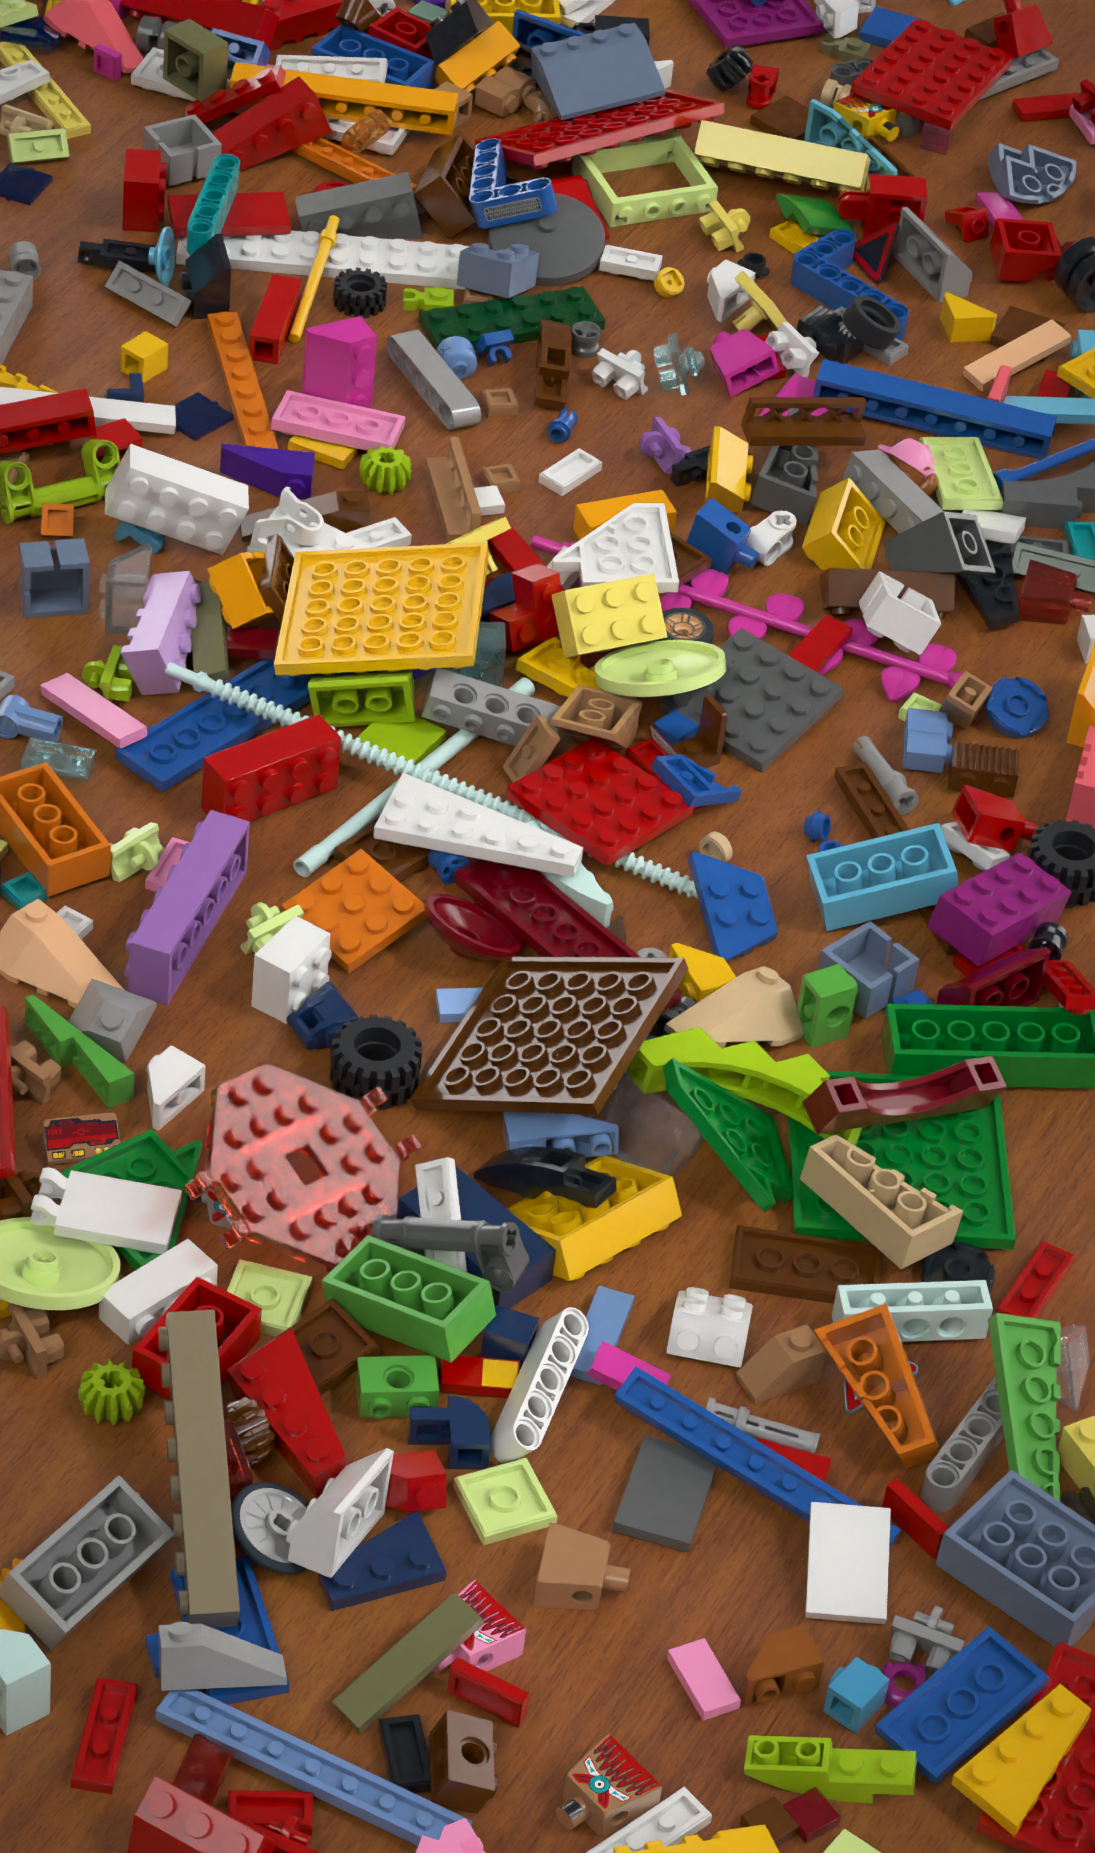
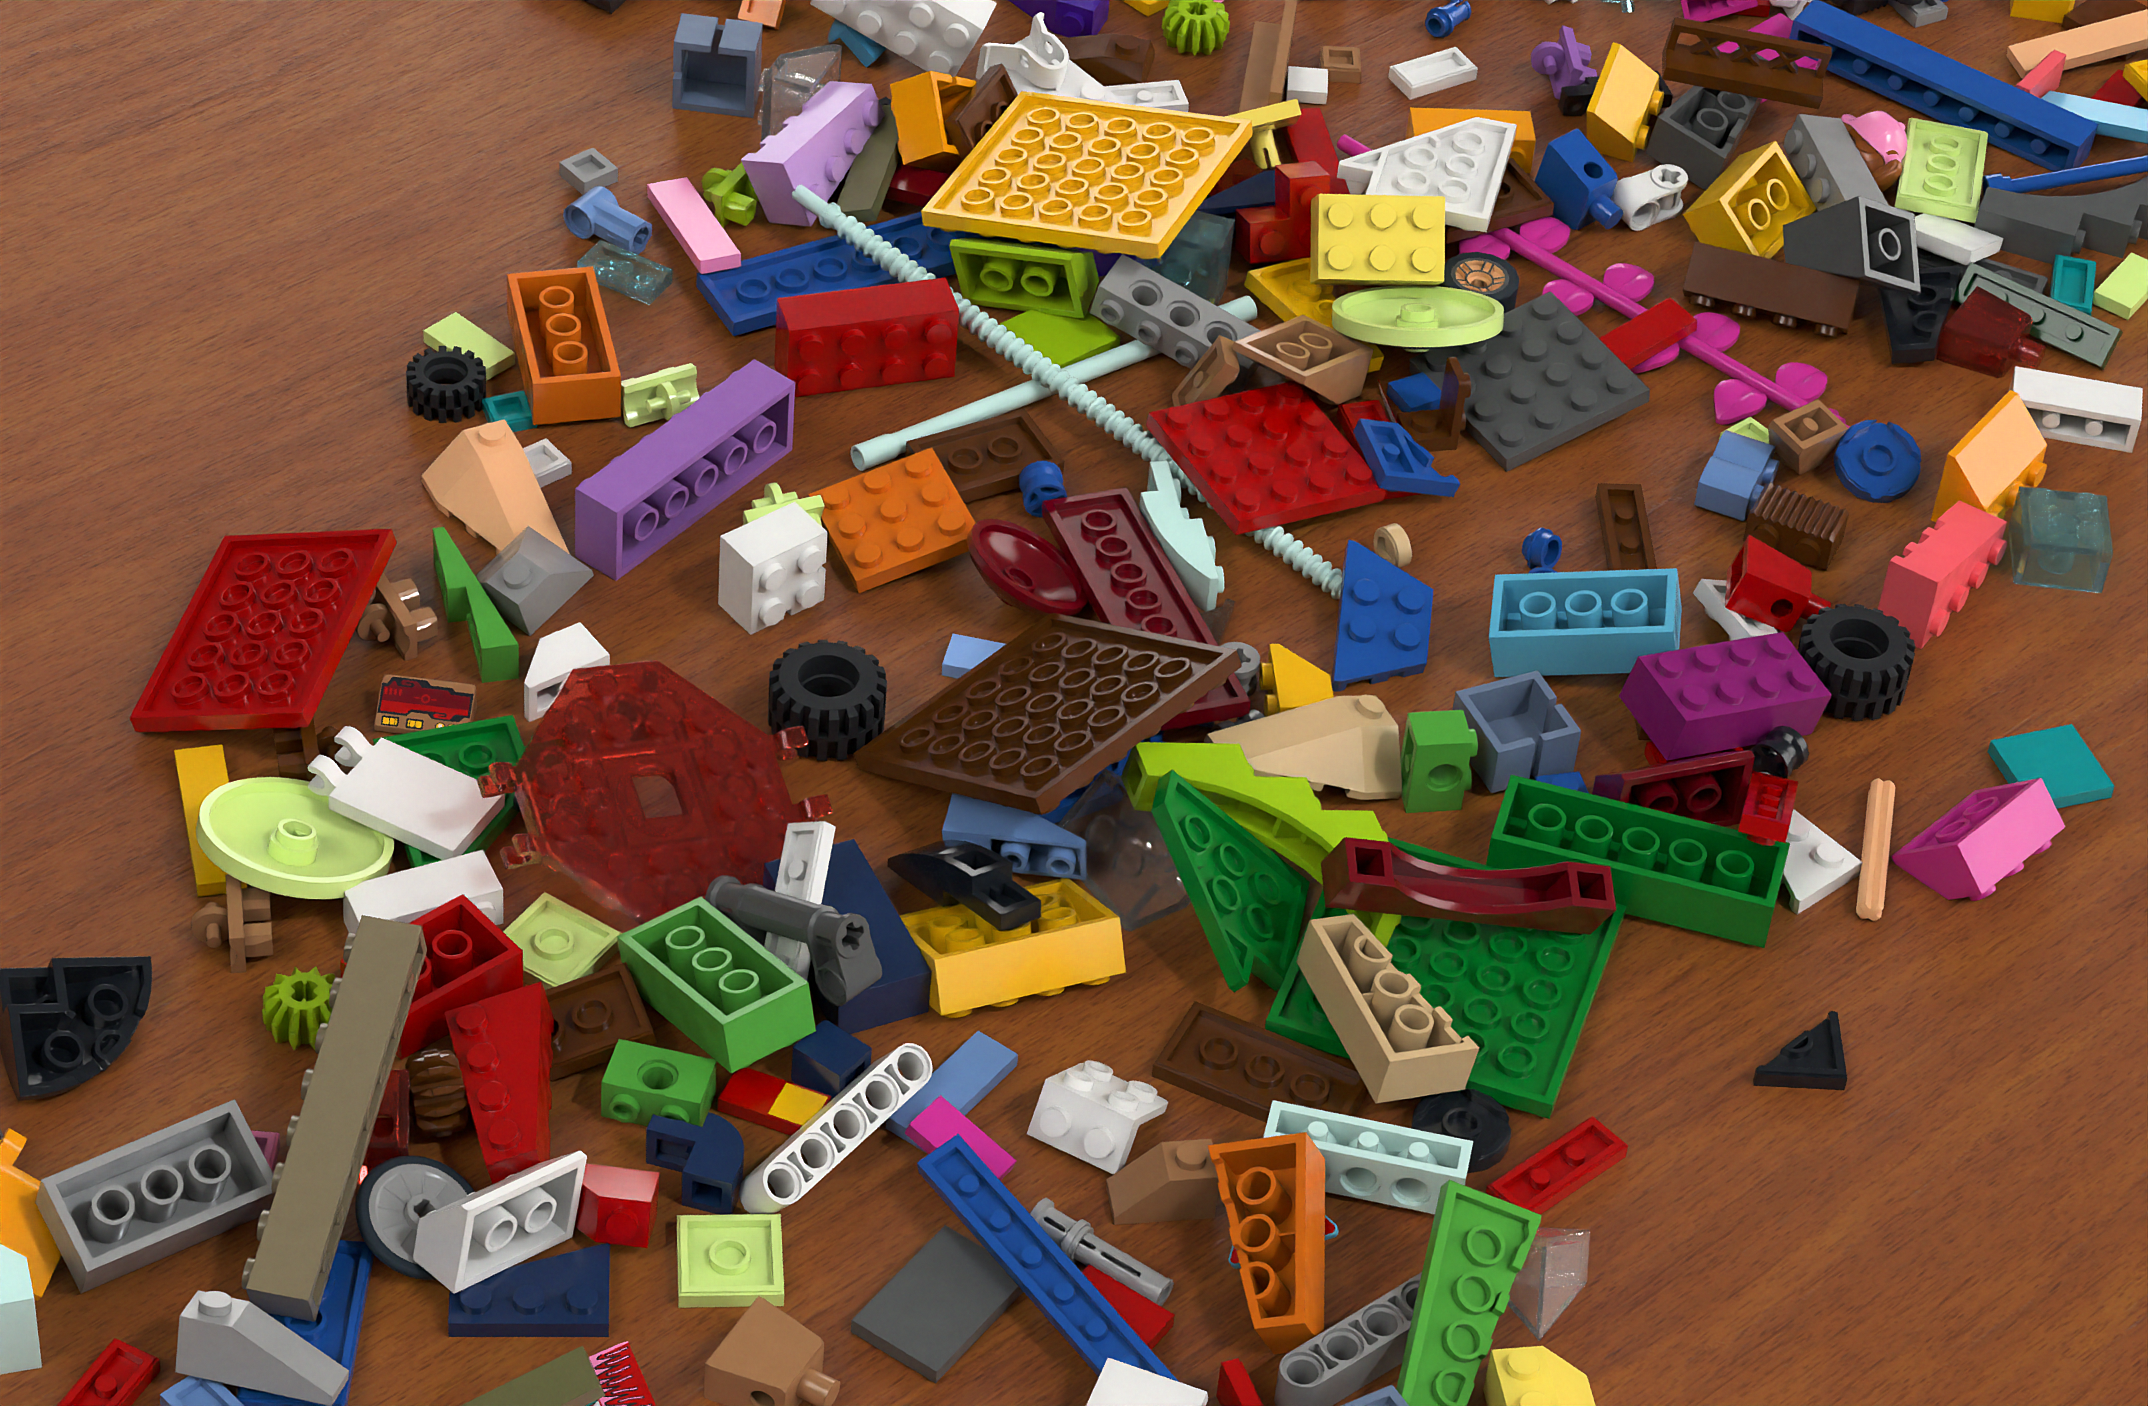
camera: 20 degrees right, 0 degrees up
(325, 1013) = (785, 629): dark blue piece -> none
(448, 823) = (1063, 443): white wing -> none
(892, 781) = (1664, 516): light grey pin -> none
(905, 620) = (1765, 328): white piece -> none

